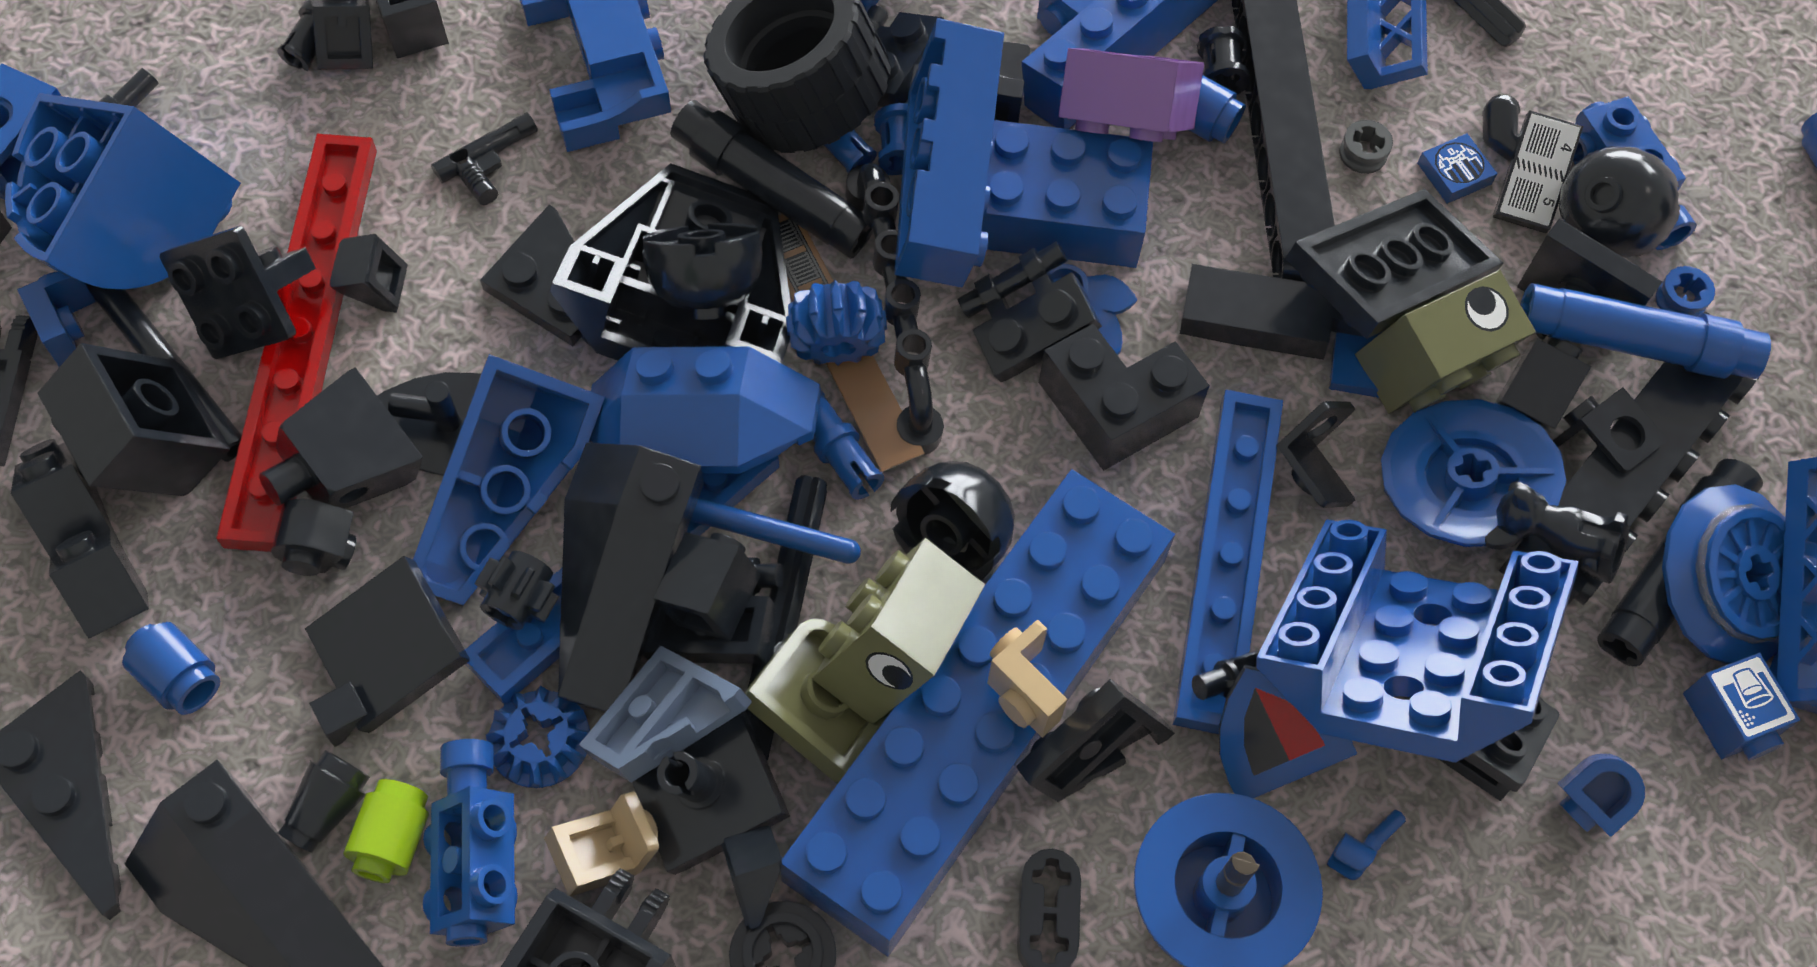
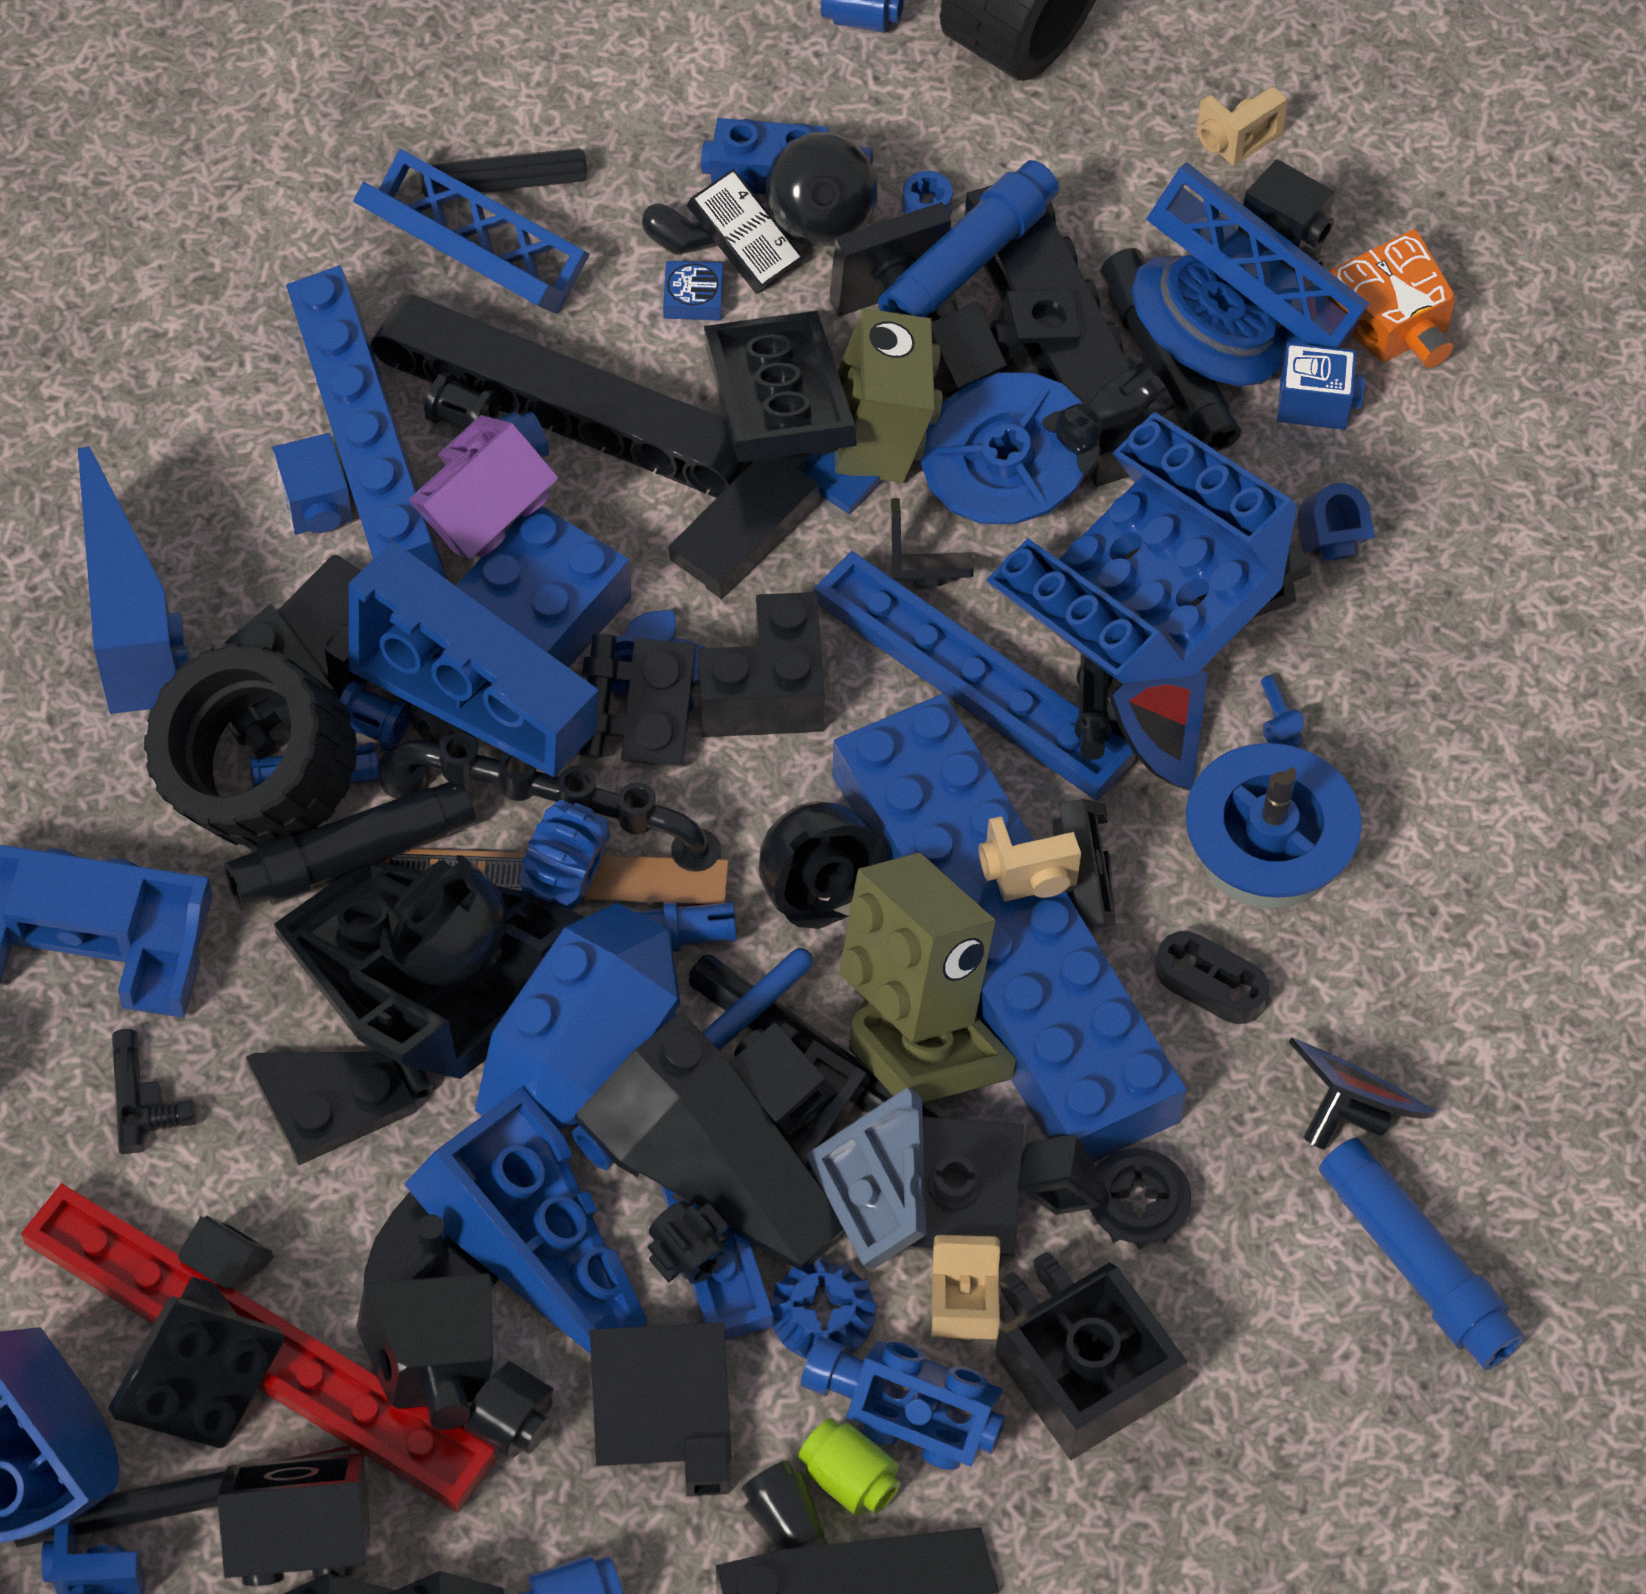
camera: 60 degrees left, 5 degrees down
(1380, 142) = (624, 332): dark grey bush -> none

